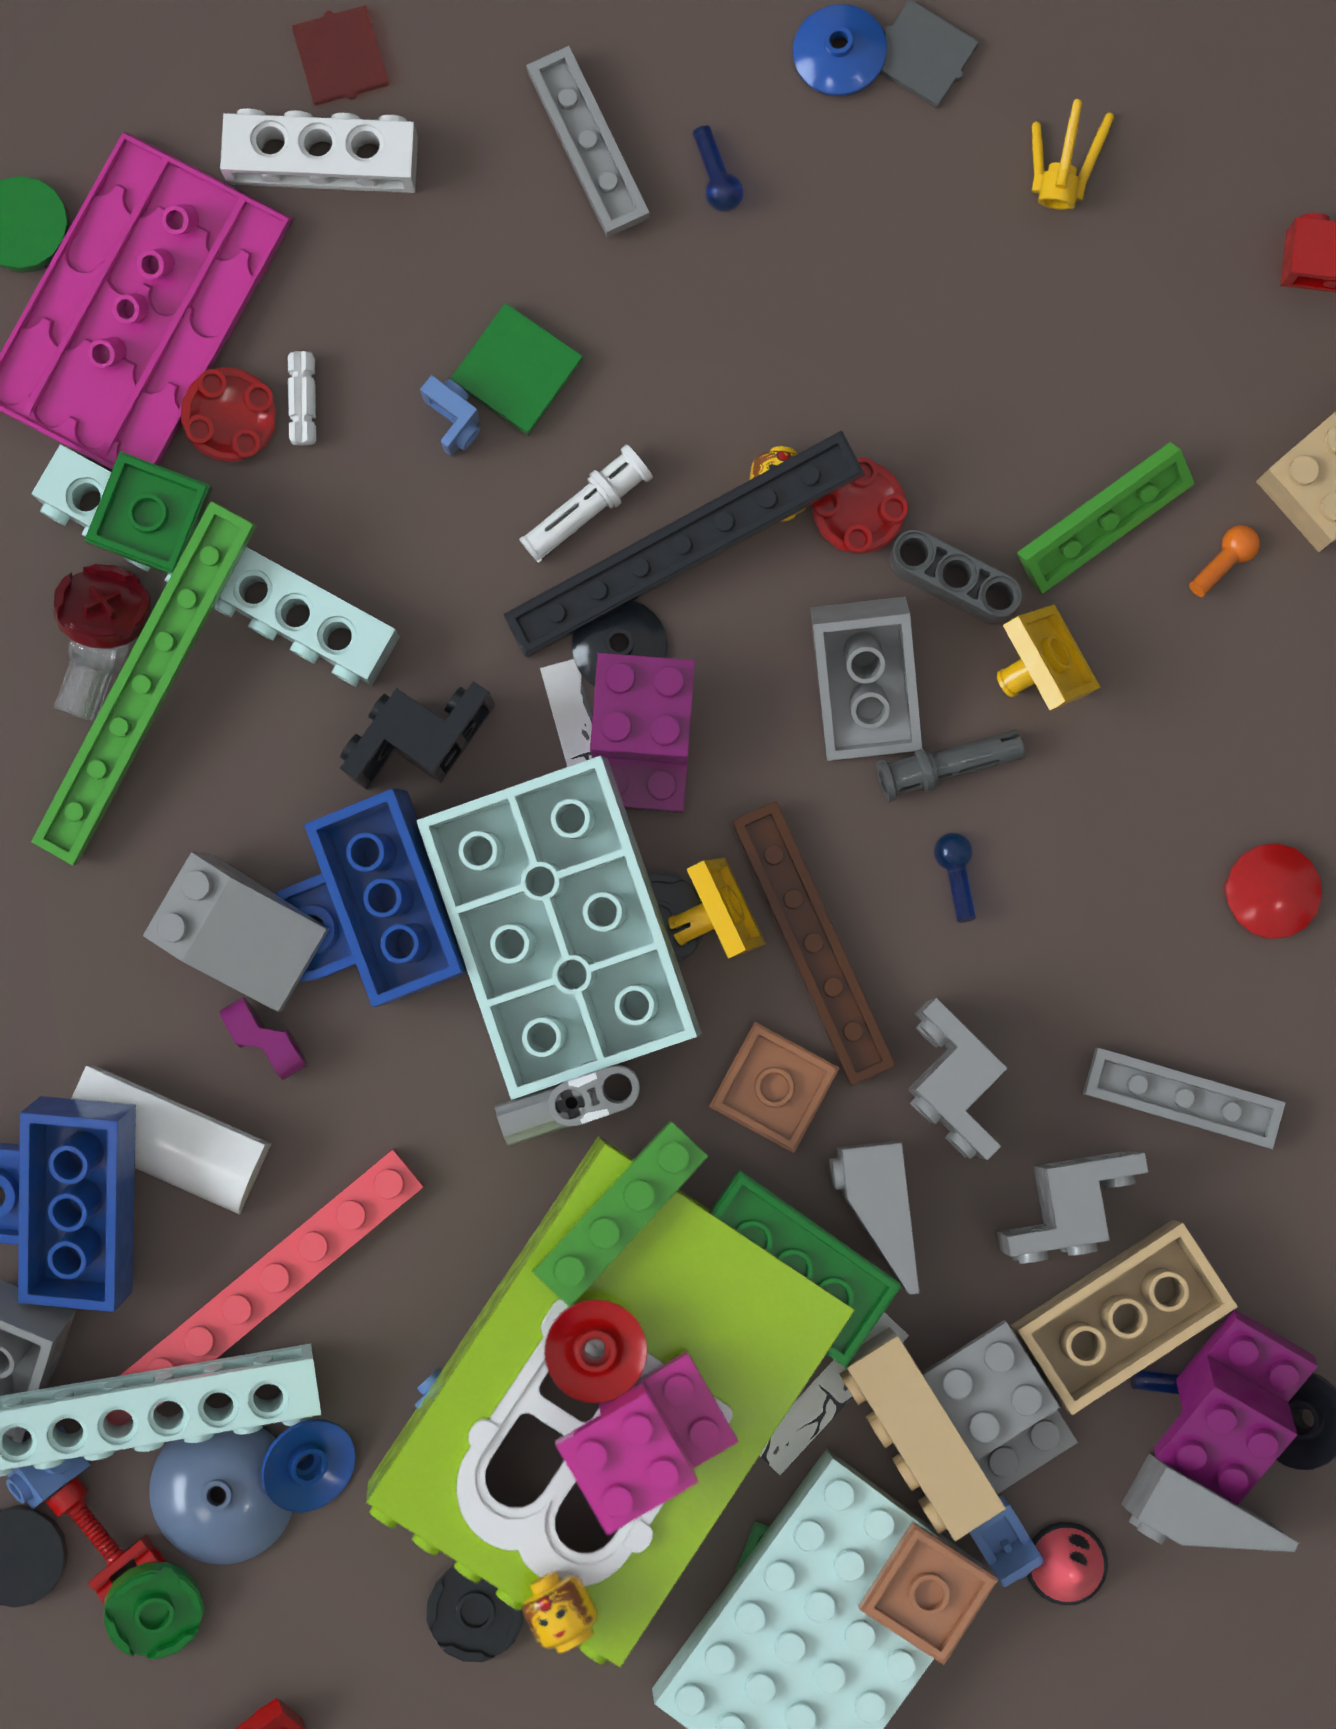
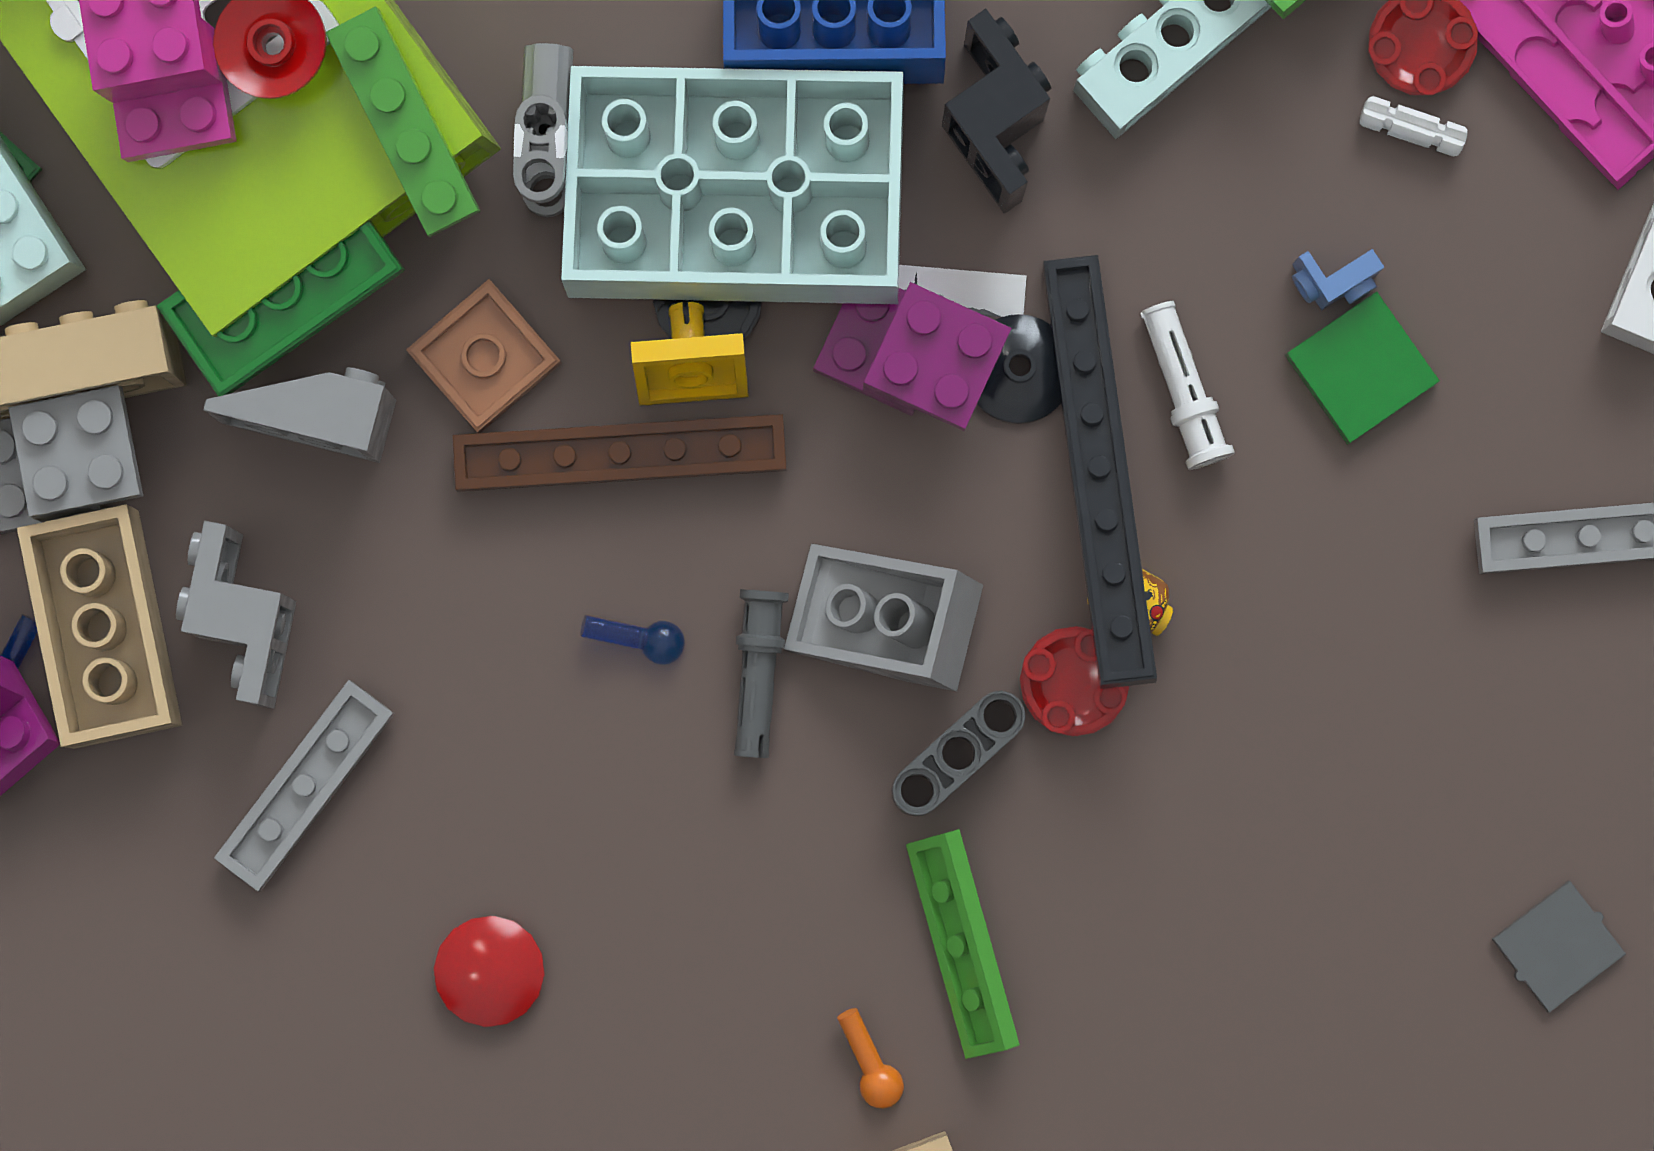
camera: 110 degrees right, 0 degrees up
(723, 190) = (1480, 665): clear blue bar -> none
(815, 1409) = (132, 273): white sticker -> none
(844, 69) = (1569, 858): blue dish -> none
(955, 1080) = (413, 541): light grey bracket -> none
(1047, 659) = (829, 817): yellow tile -> none
(1060, 185) = (1353, 1038): yellow plant -> none

